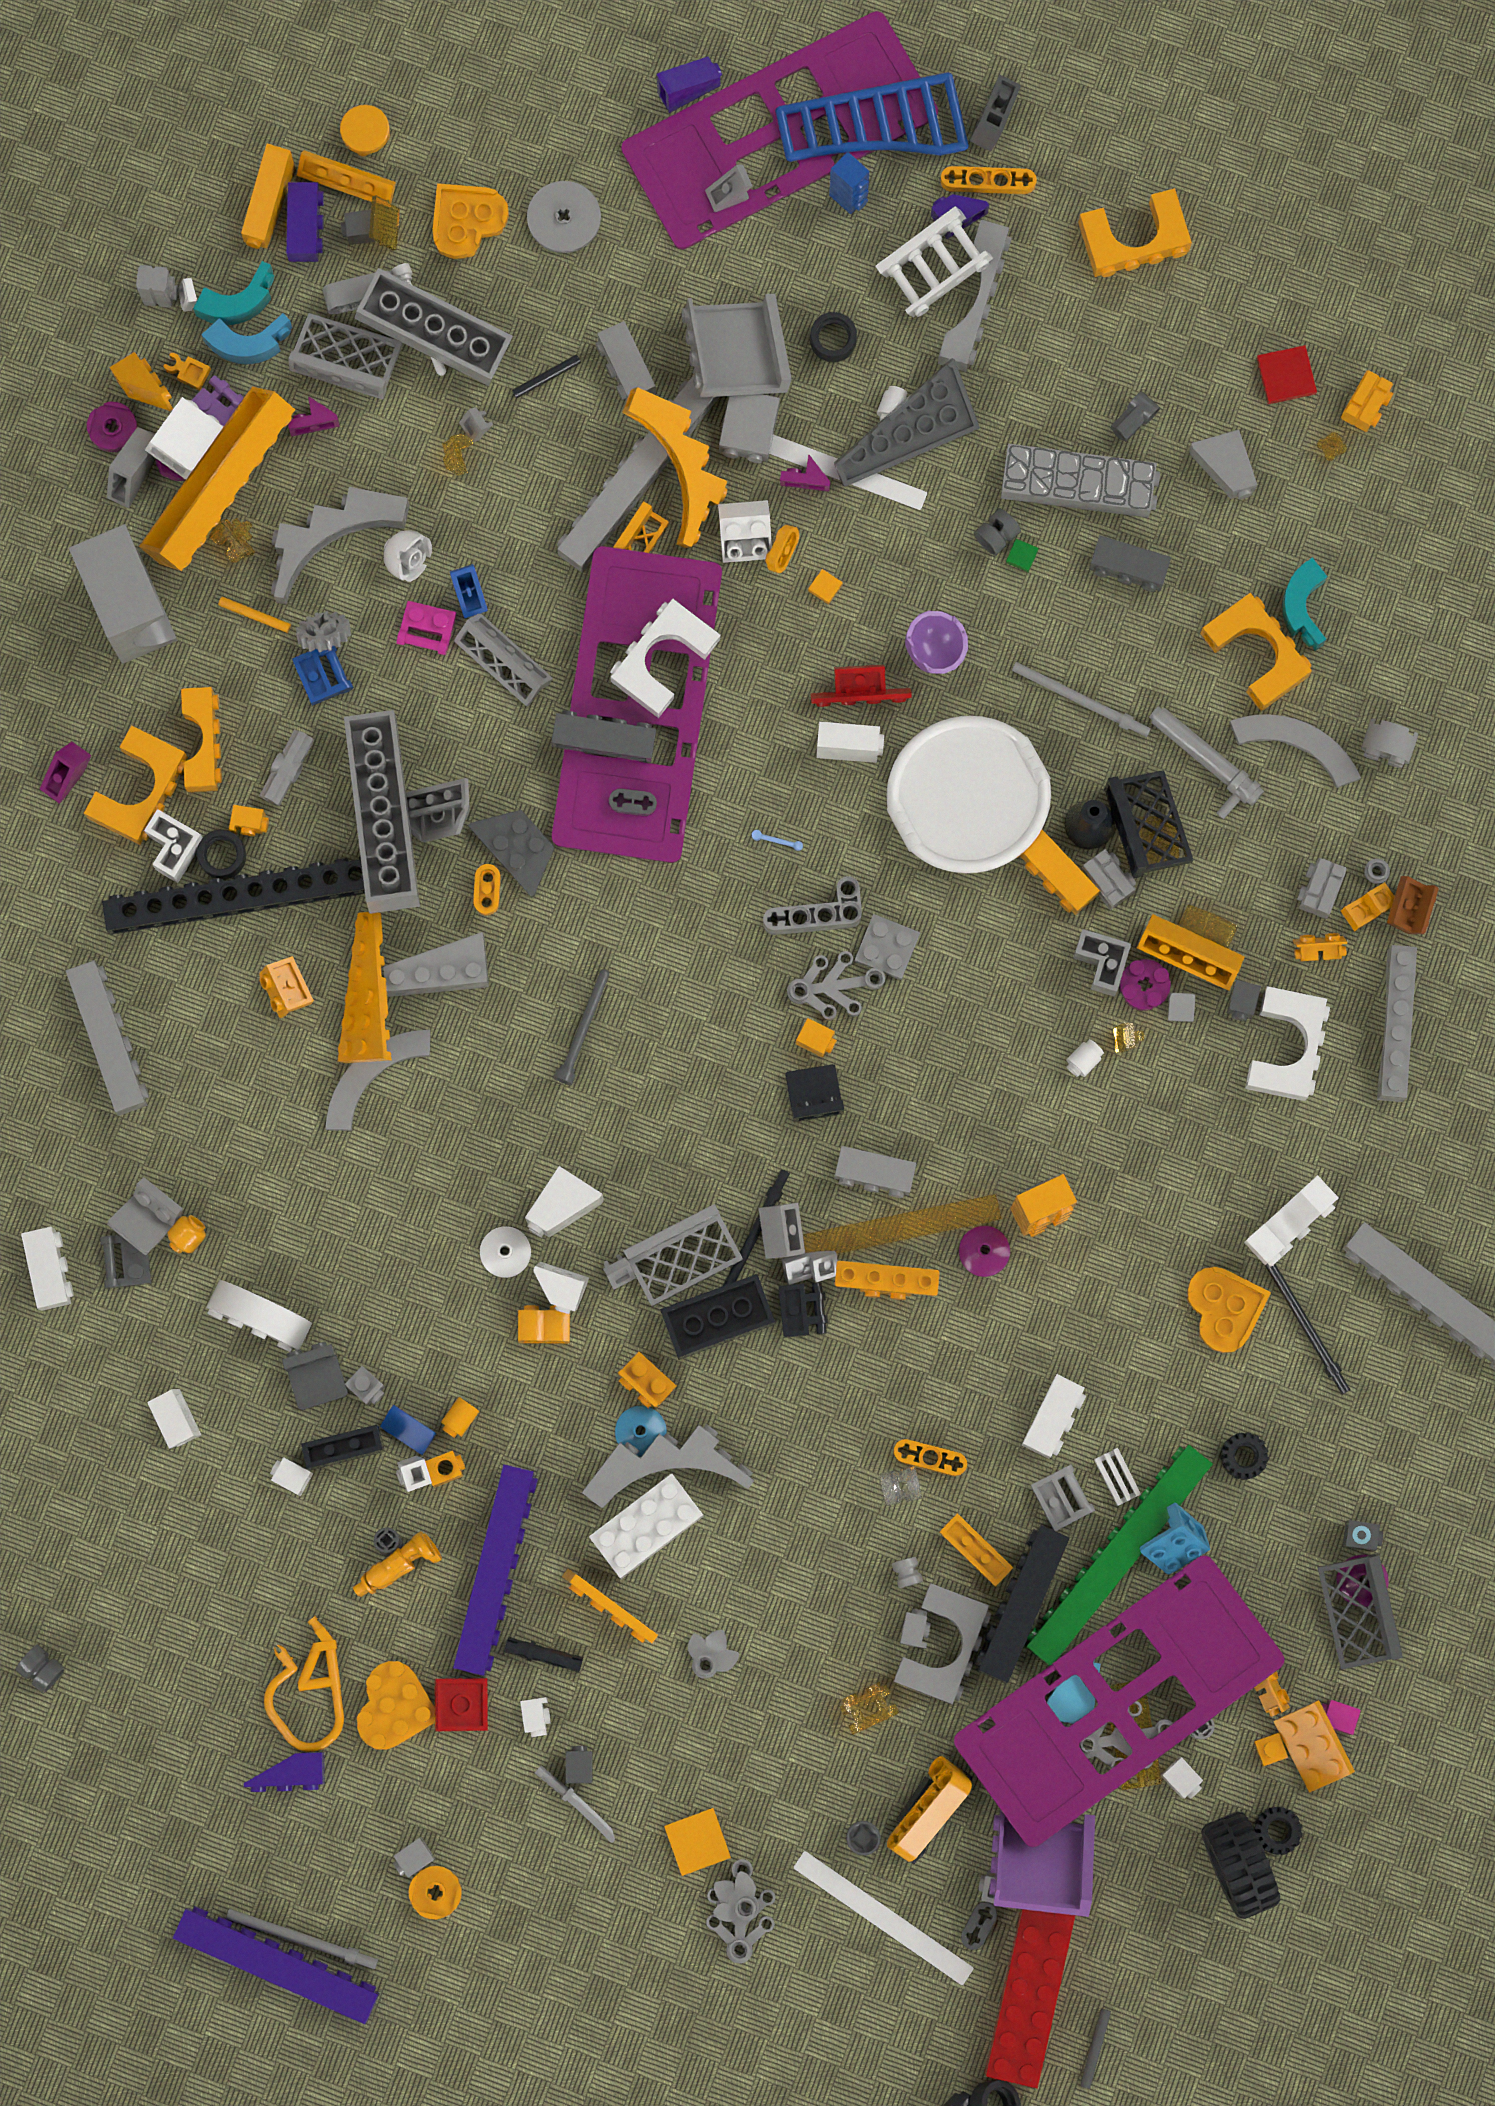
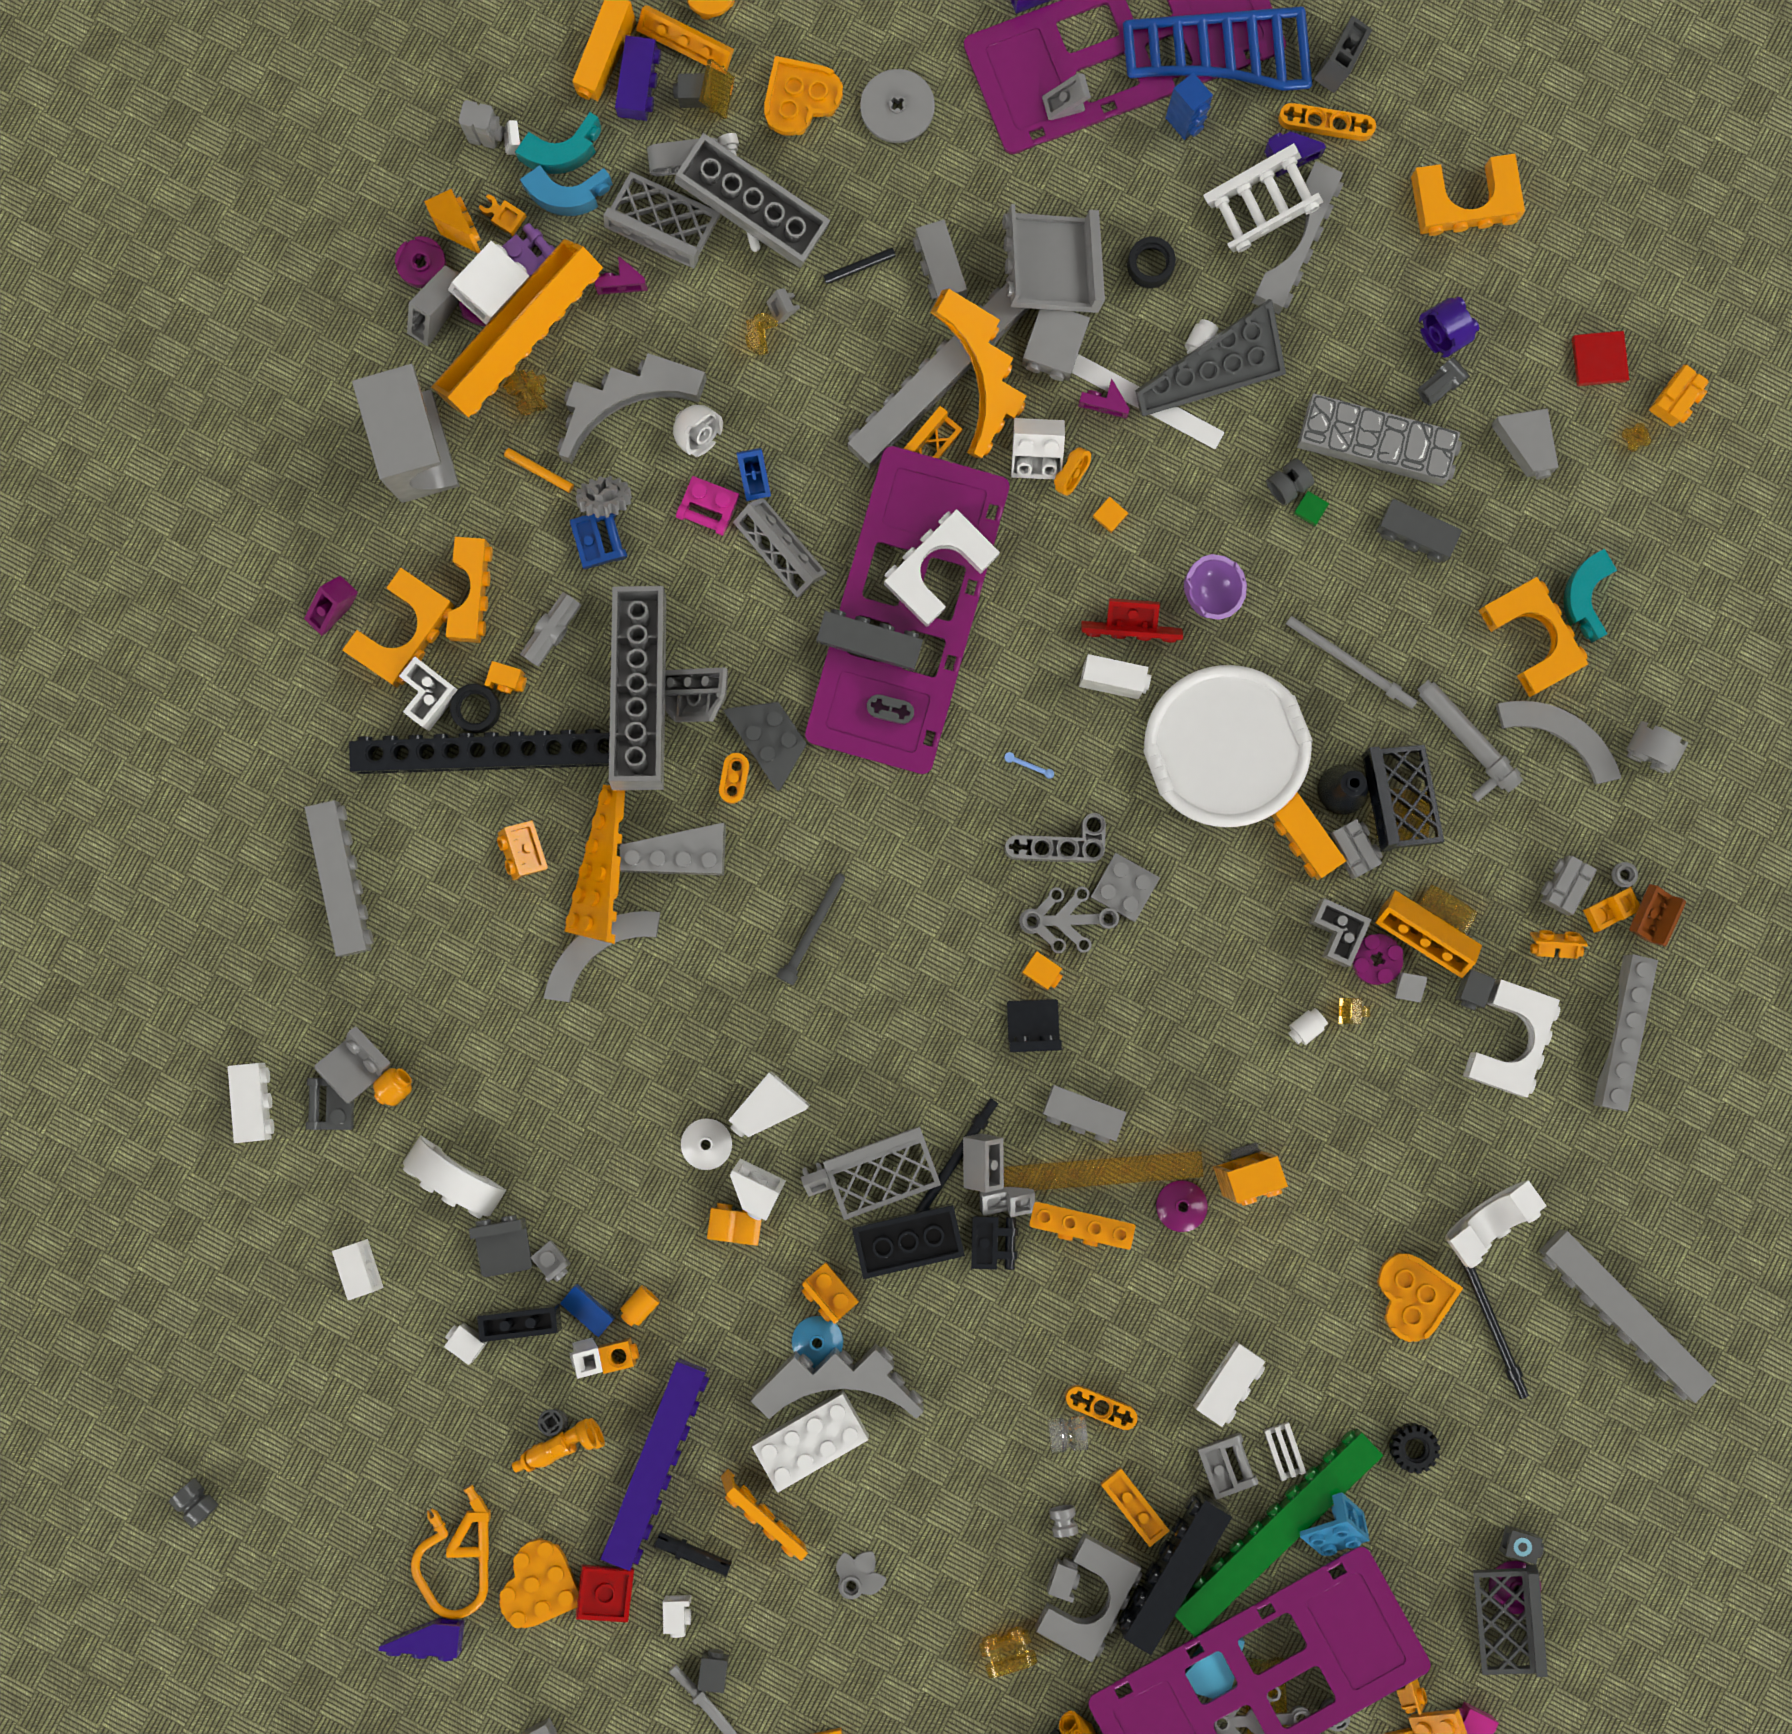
camera: 10 degrees right, 5 degrees up
(1131, 363) = (1448, 326): none -> dark purple brick

